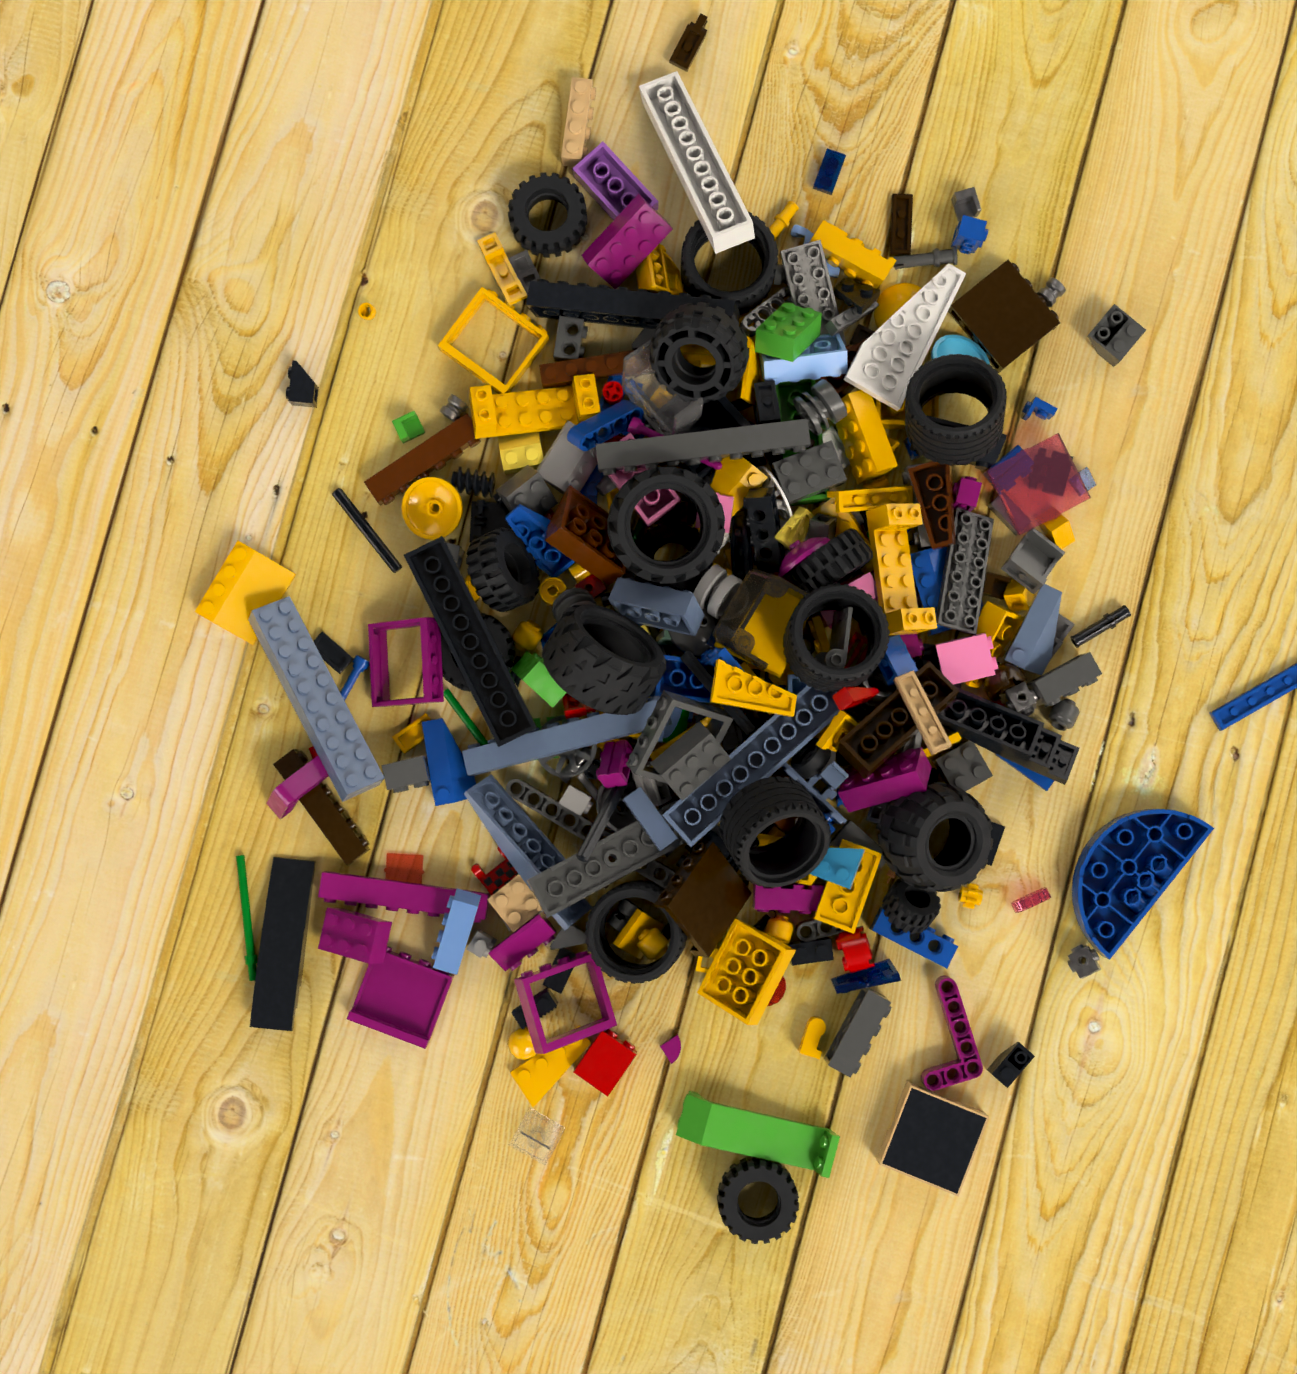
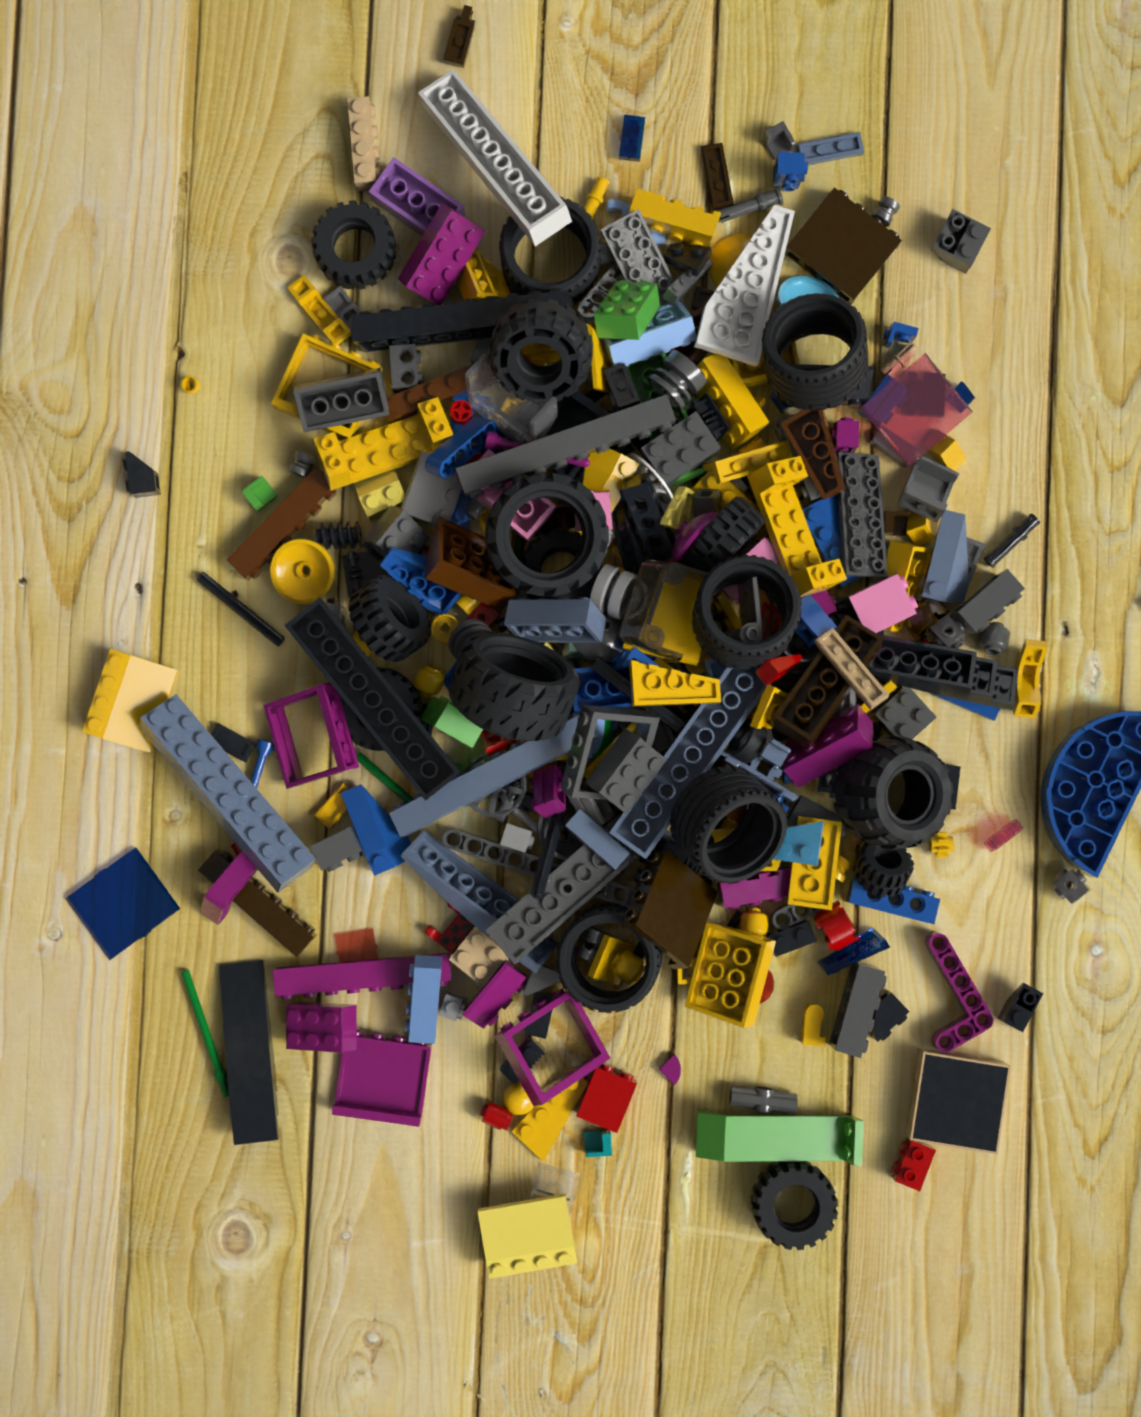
camera: 15 degrees left, 0 degrees up
(196, 779) = (122, 903): none -> clear blue piece
(498, 1055) = (496, 1116): none -> red brick
(502, 1173) = (527, 1236): none -> light yellow slope
(504, 356) = (341, 400): none -> dark grey slope
(587, 1102) = (598, 1143): none -> teal panel
(751, 1096) = (763, 1099): none -> dark grey piece
(844, 447) = (710, 415): none -> black hinge
(873, 895) = (842, 867): none -> yellow wheel
(877, 1187) = (912, 1163): none -> red brick
(885, 1043) = (889, 1014): none -> black slope
(1014, 222) = (832, 148): none -> sand blue tile
(1033, 434) = (899, 360): none -> tan axle
(1090, 744) = (1029, 663): none -> yellow arch

